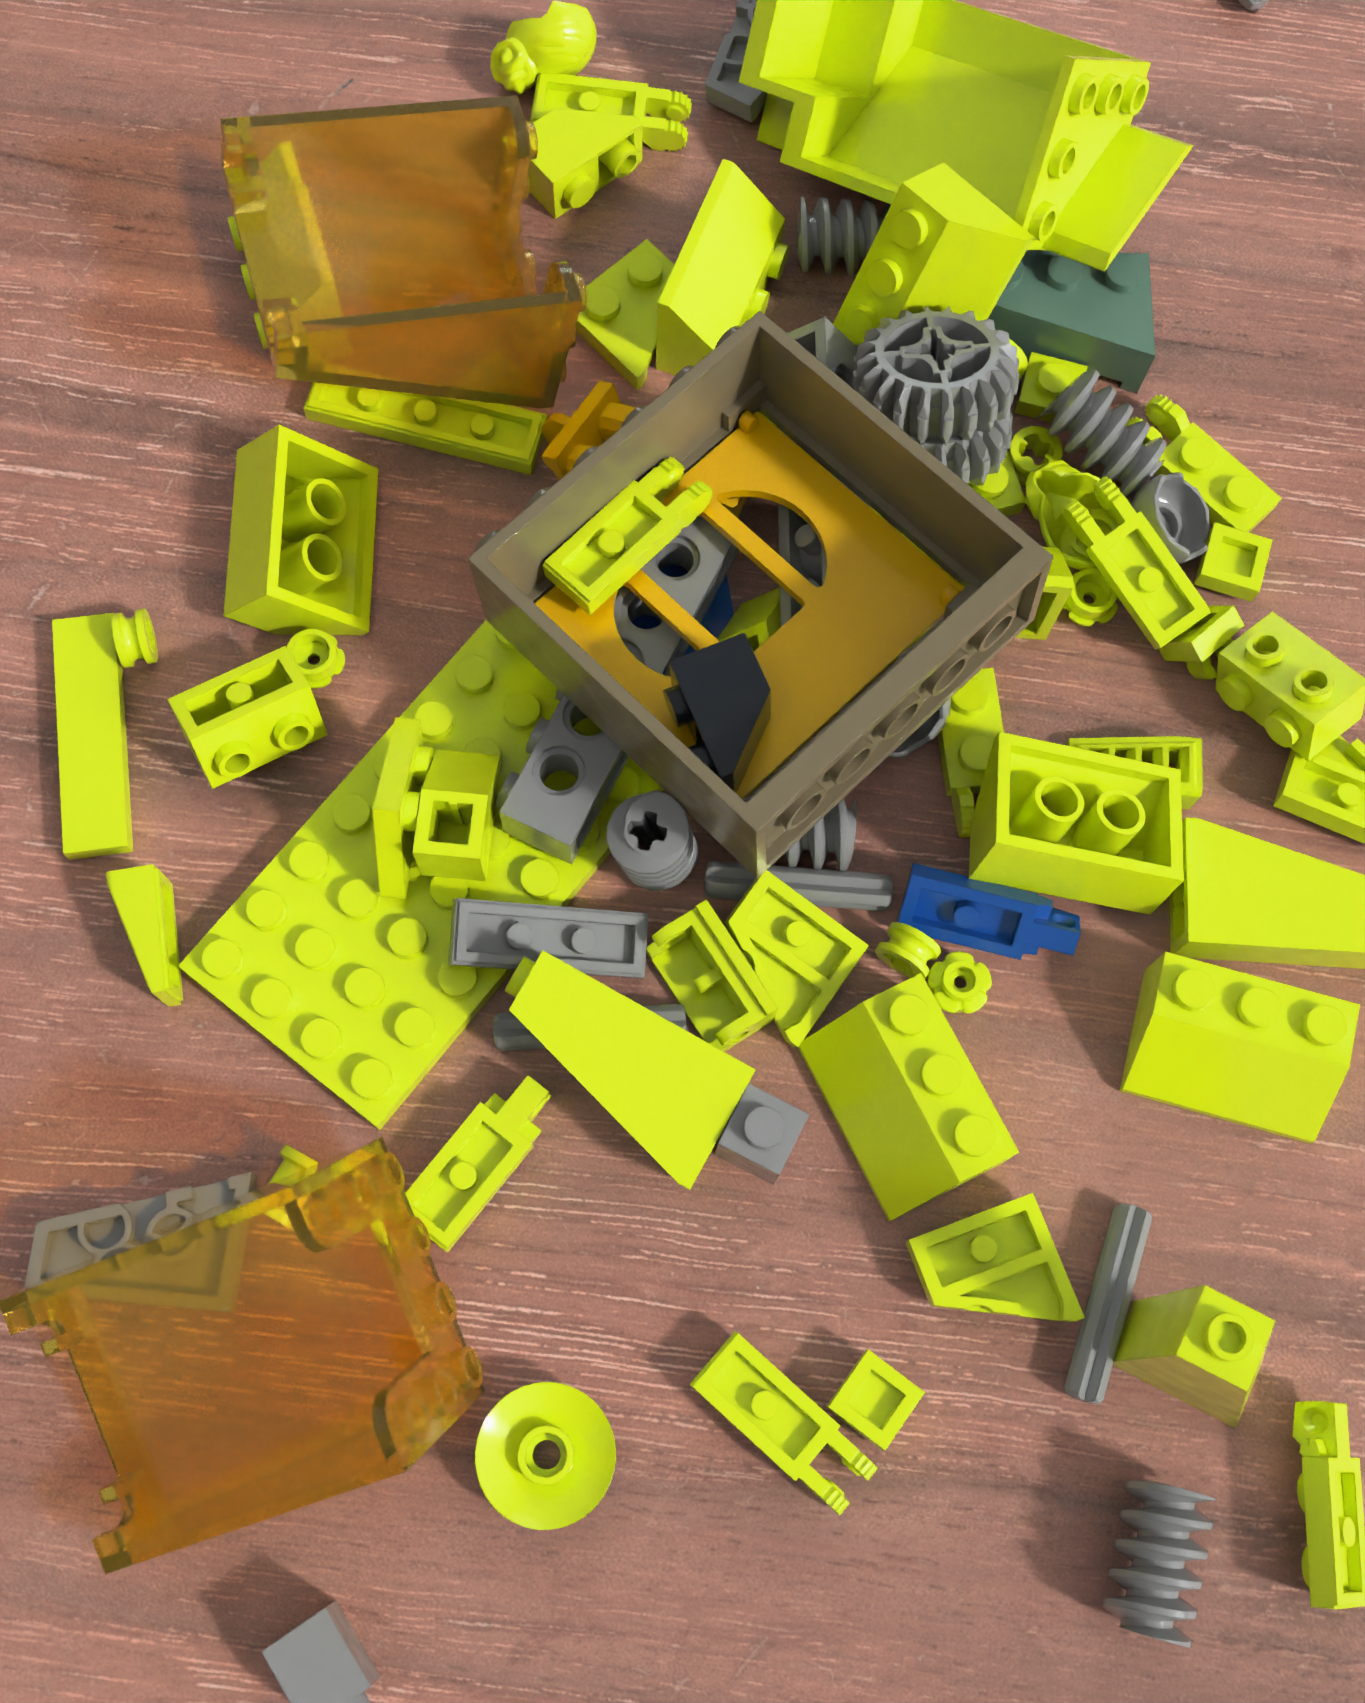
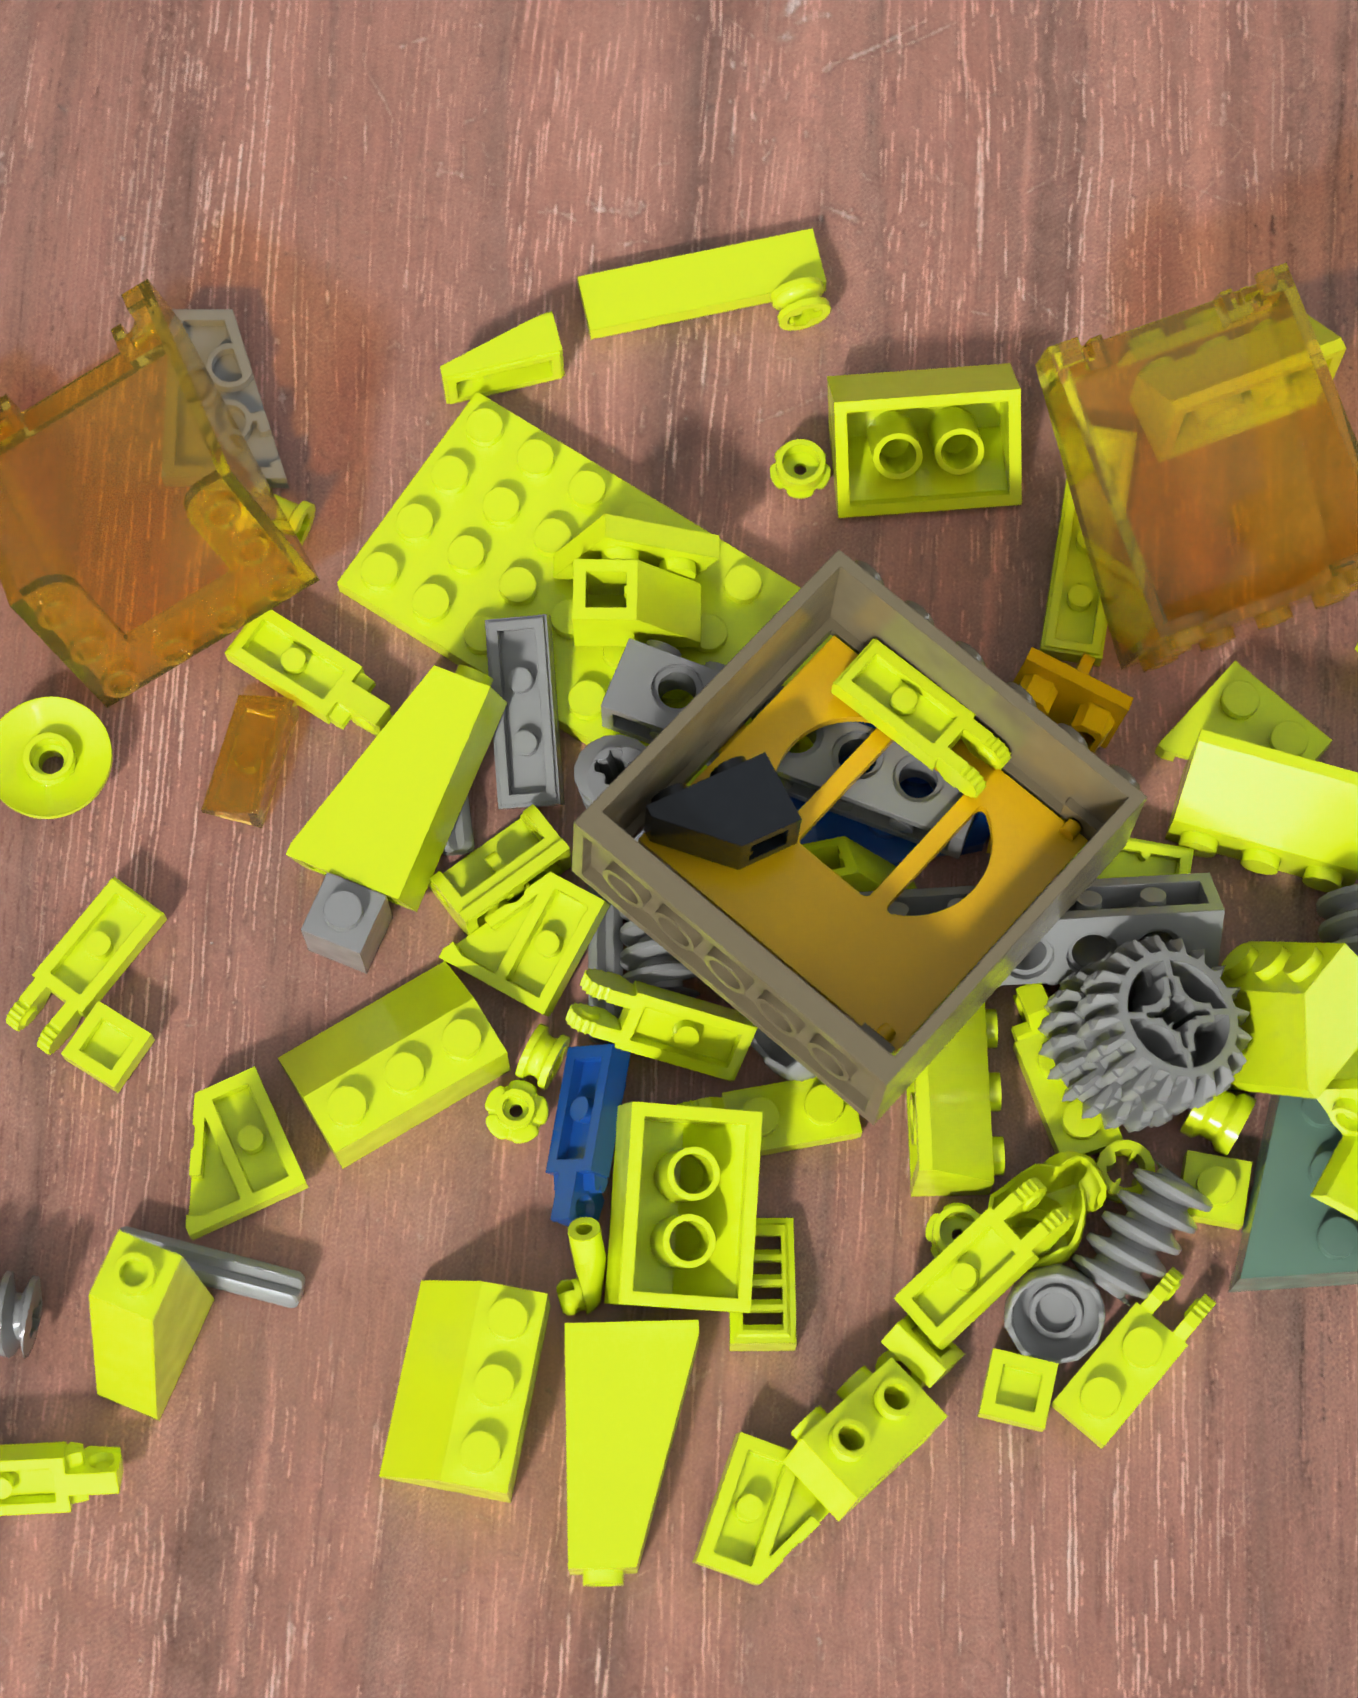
camera: 90 degrees right, 0 degrees up
(248, 716) = (720, 412): neon yellow brick -> none
(563, 1232) = (251, 759): none -> clear yellow slope
(890, 831) = (664, 1025): none -> neon yellow hinge
(1122, 927) = (589, 1264): none -> neon yellow arm

